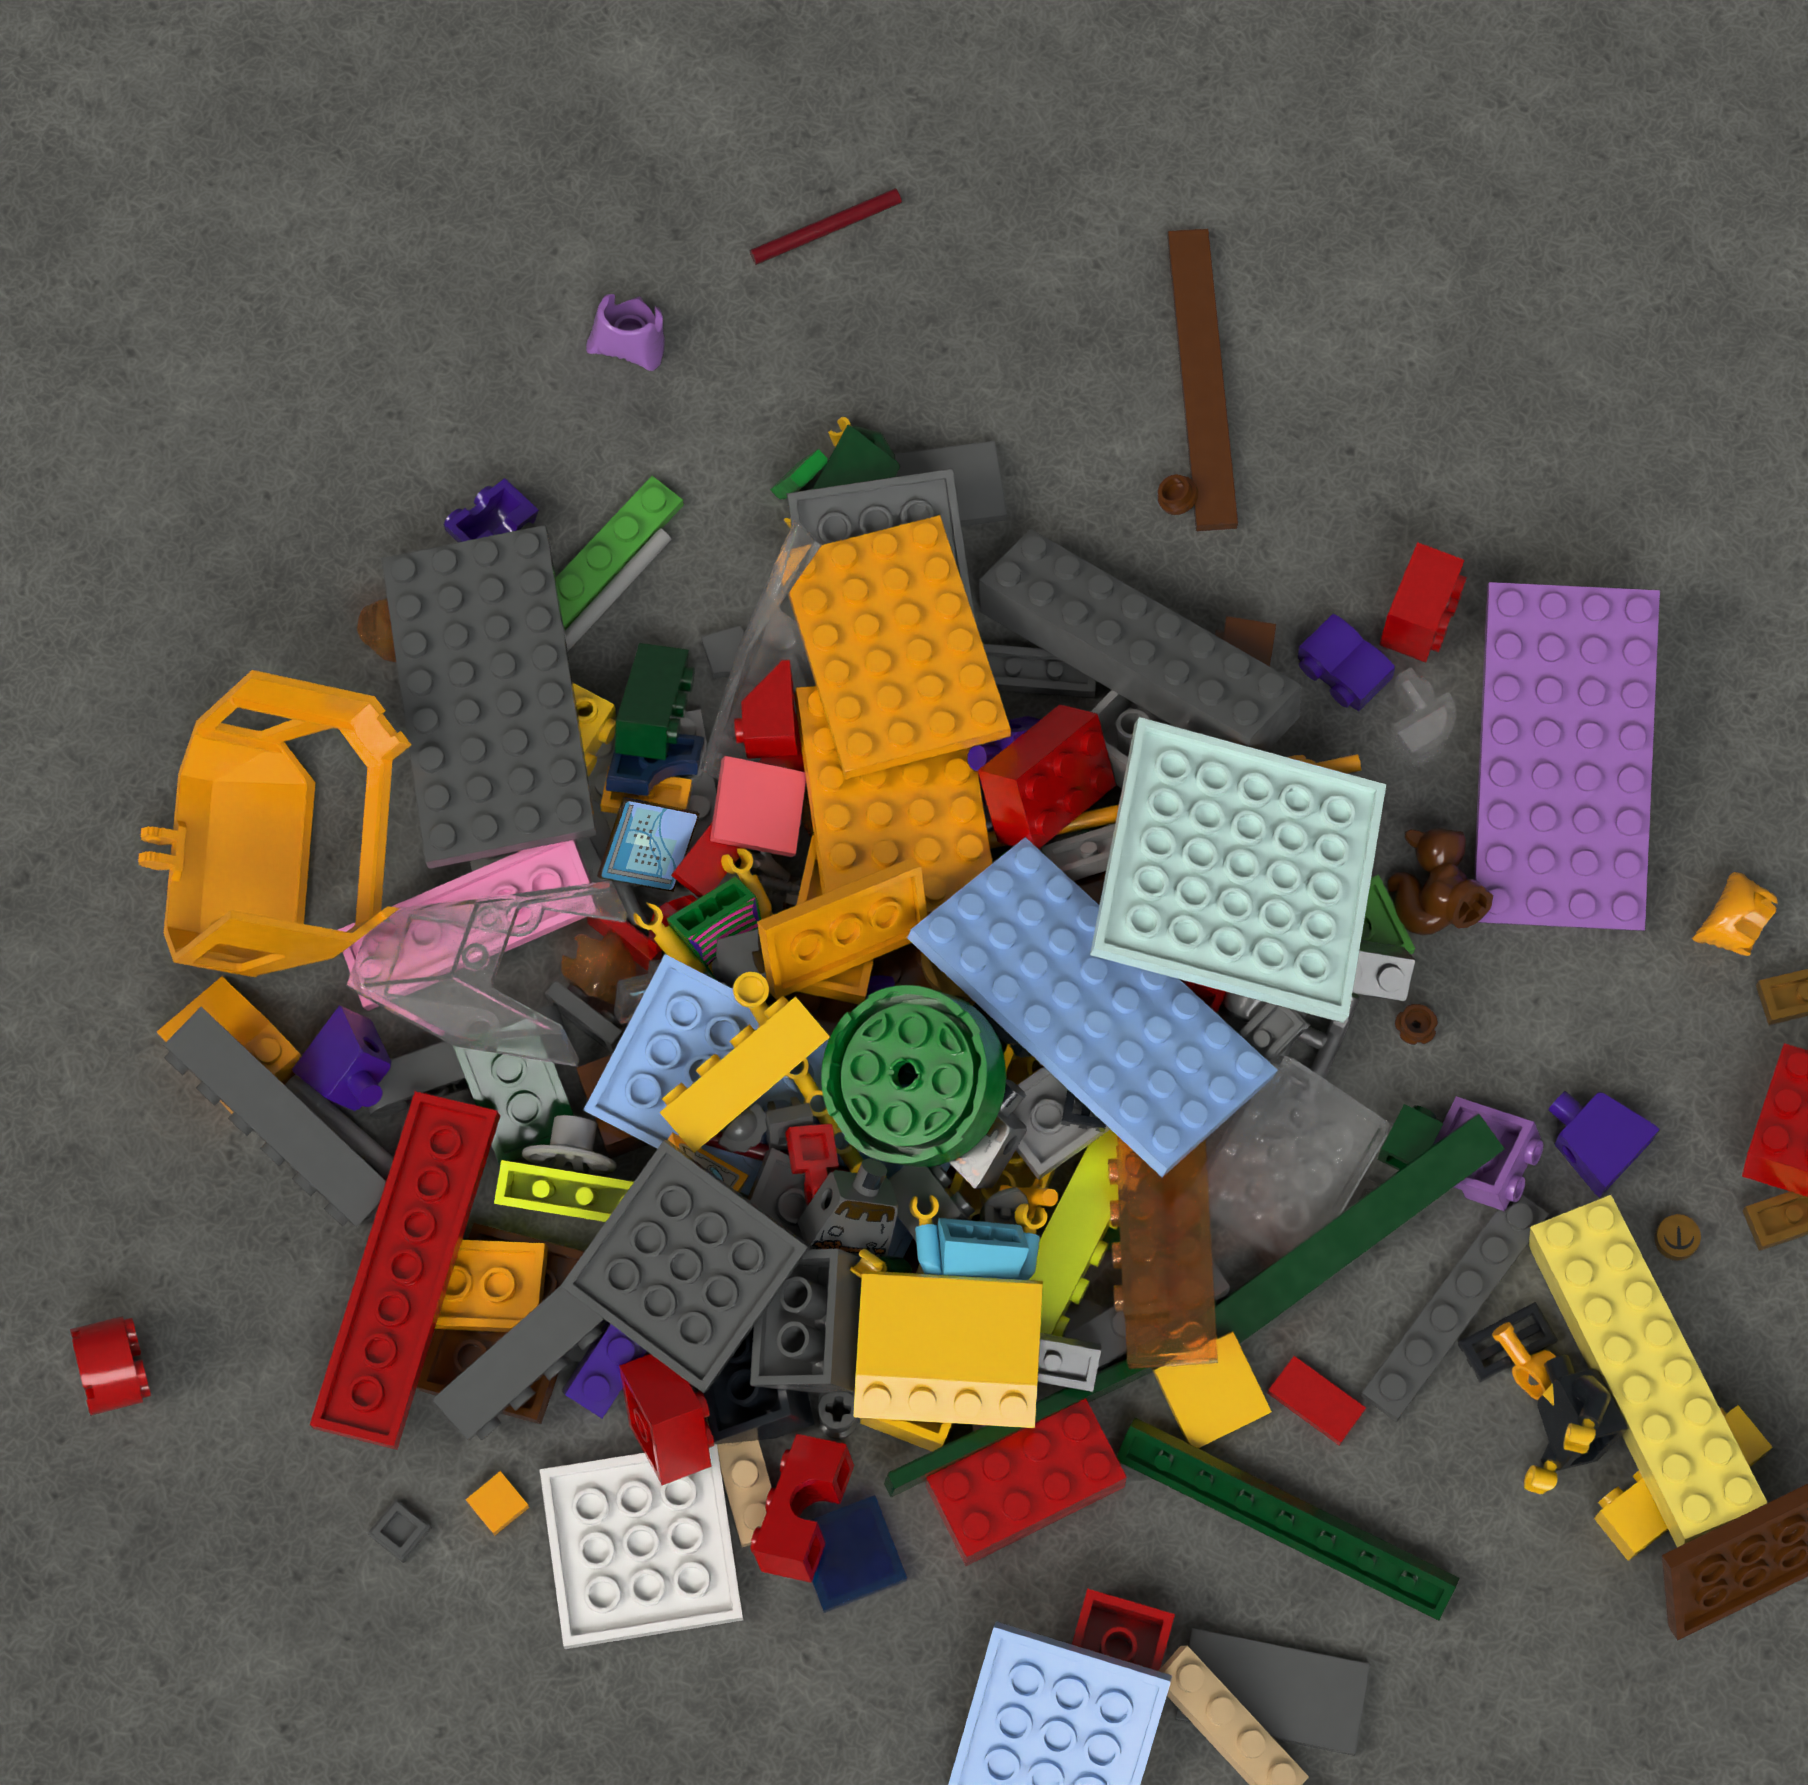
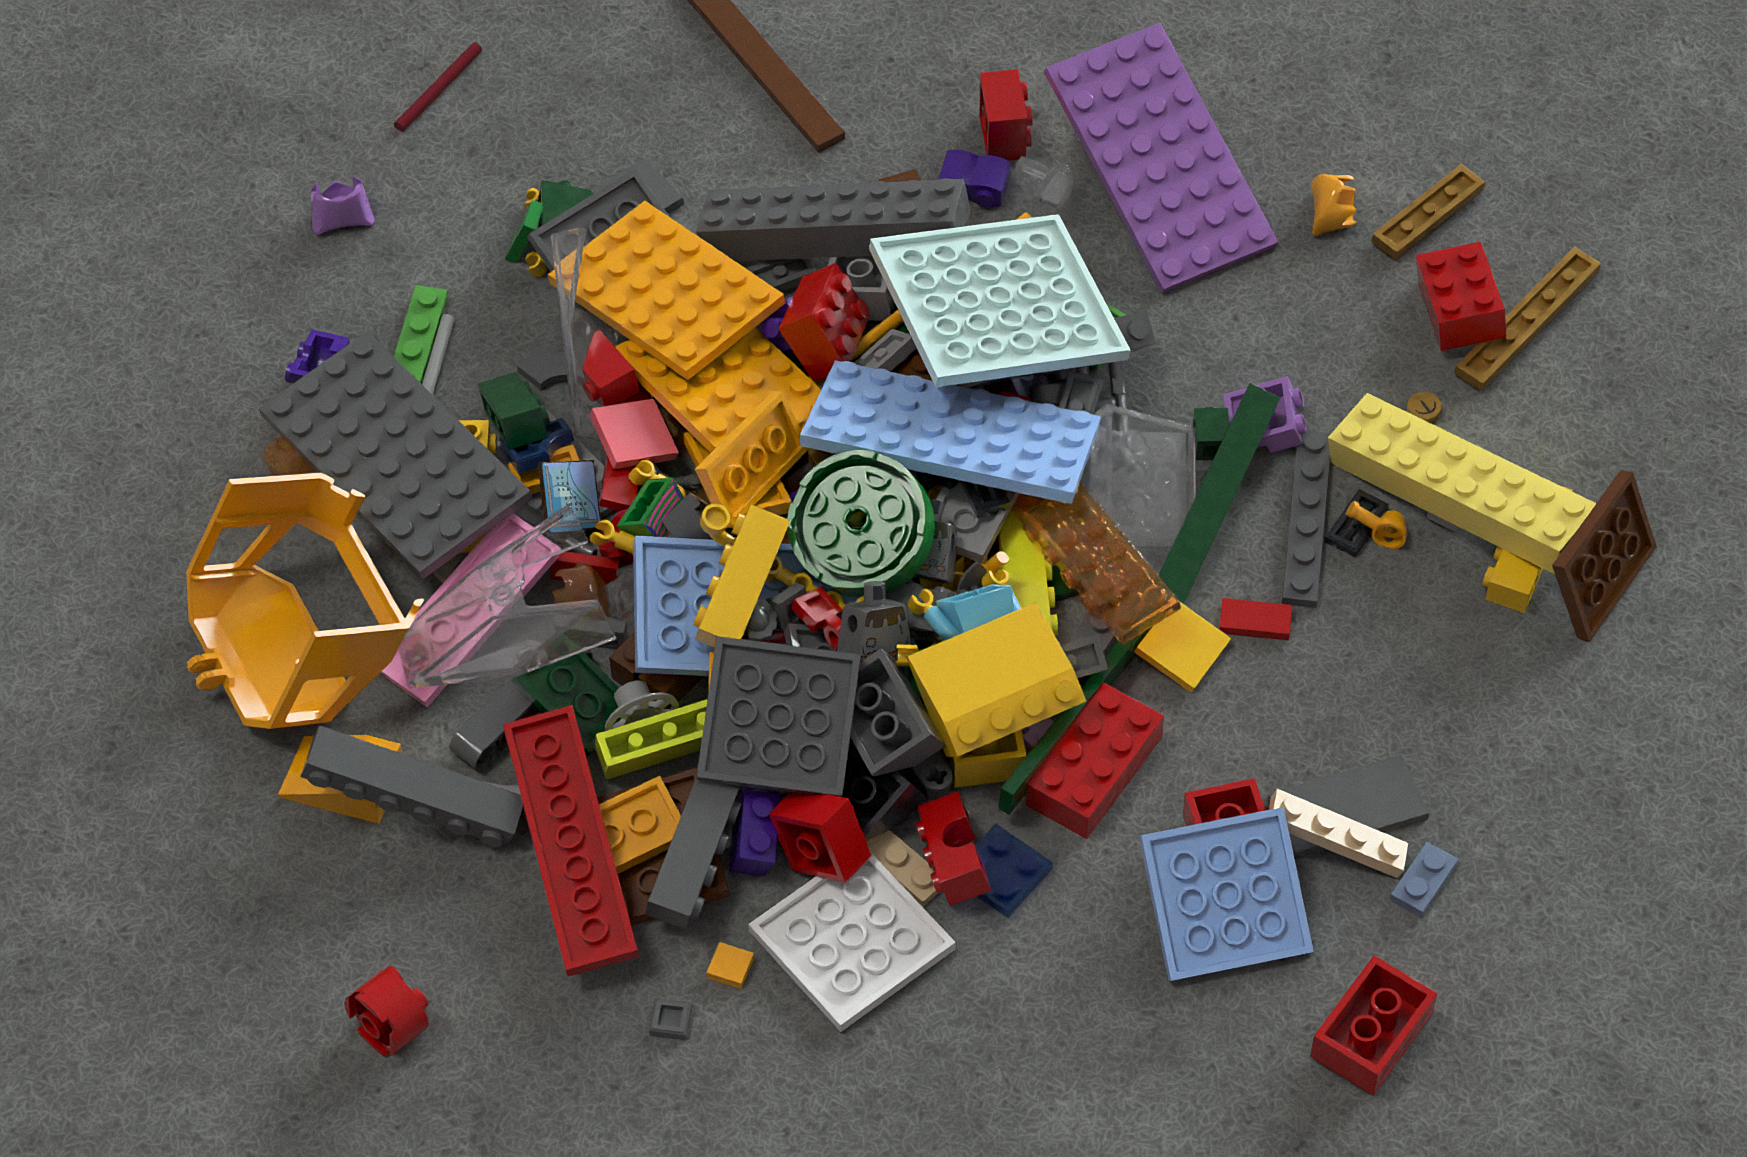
camera: 30 degrees left, 15 degrees down
(346, 1061) = (439, 733): dark purple torso -> none
(1177, 494) = (792, 133): reddish brown plate -> none
(1287, 1519) = (1288, 695): dark green plate -> none
(1420, 1014) = (1170, 359): reddish brown plate -> none
(1447, 893) = (1136, 277): reddish brown animal -> none
(1578, 1422) = (1438, 535): black torso -> none
(1600, 1138) = (1334, 372): dark purple torso -> none

